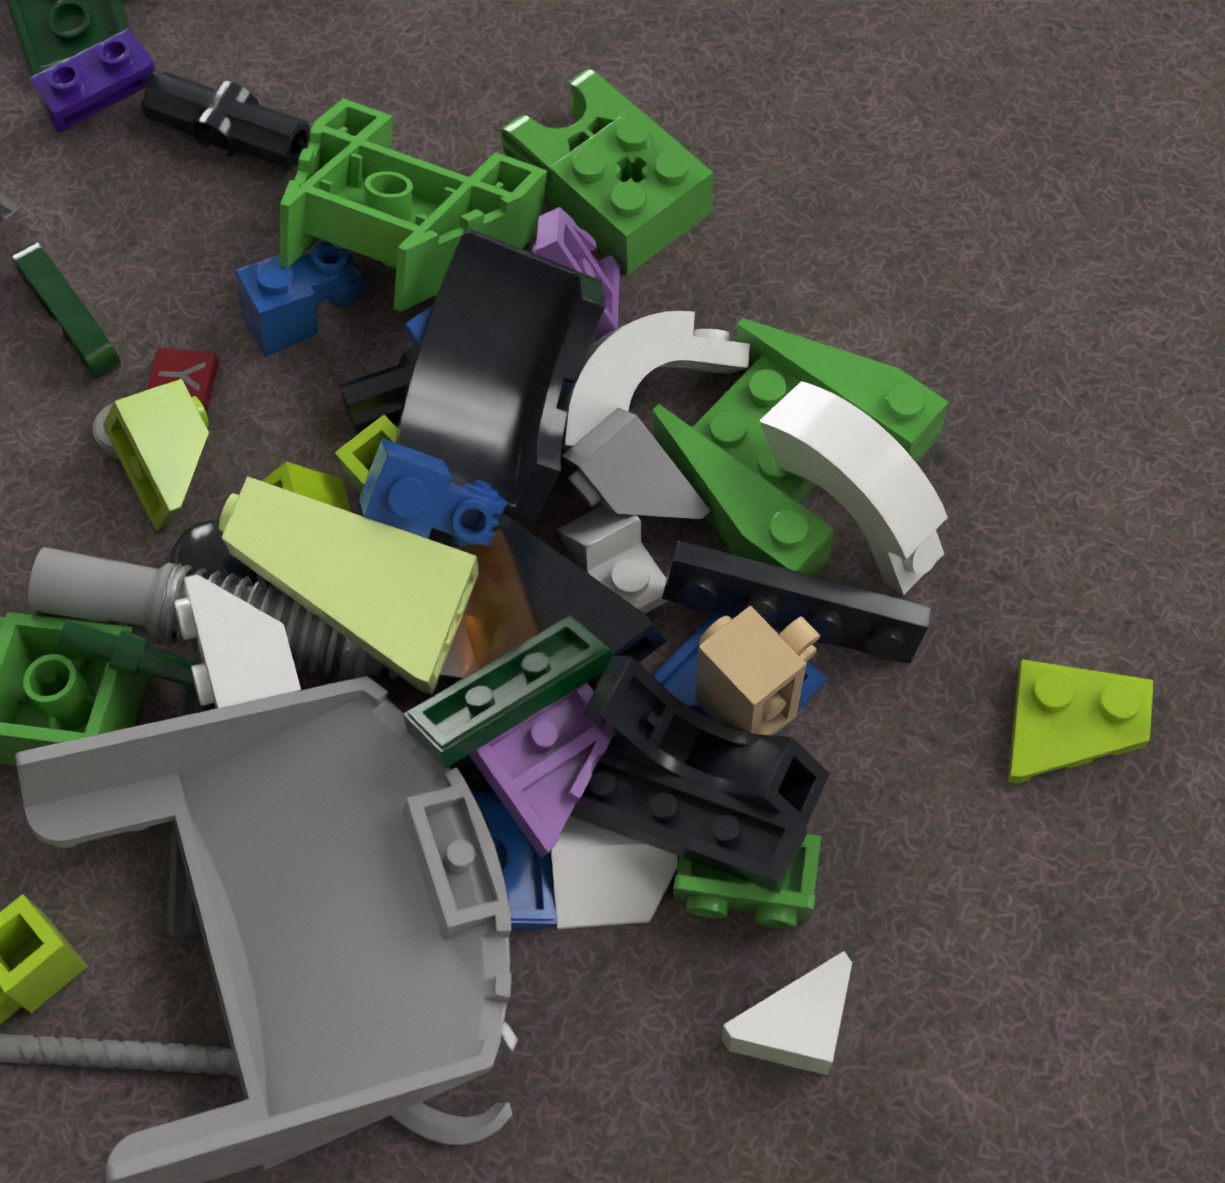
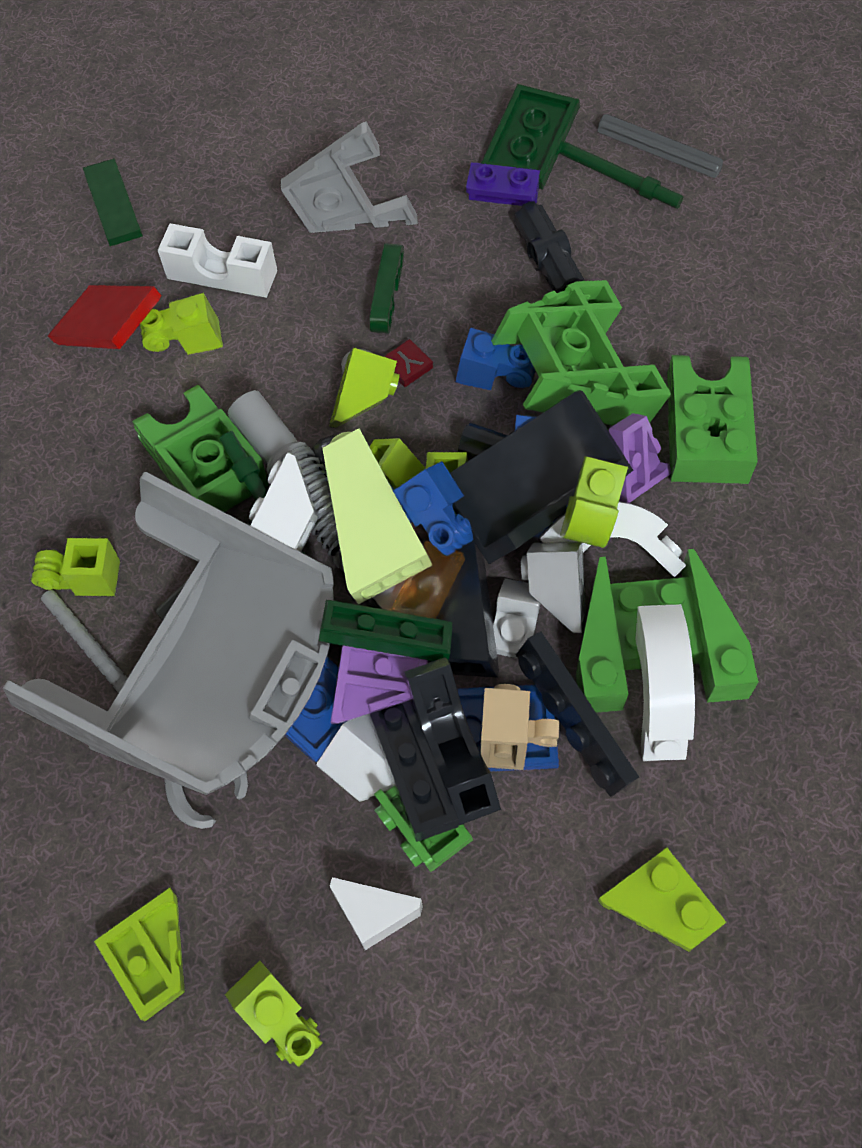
camera: 45 degrees right, 0 degrees up
(616, 355) = (593, 508): none -> lime brick

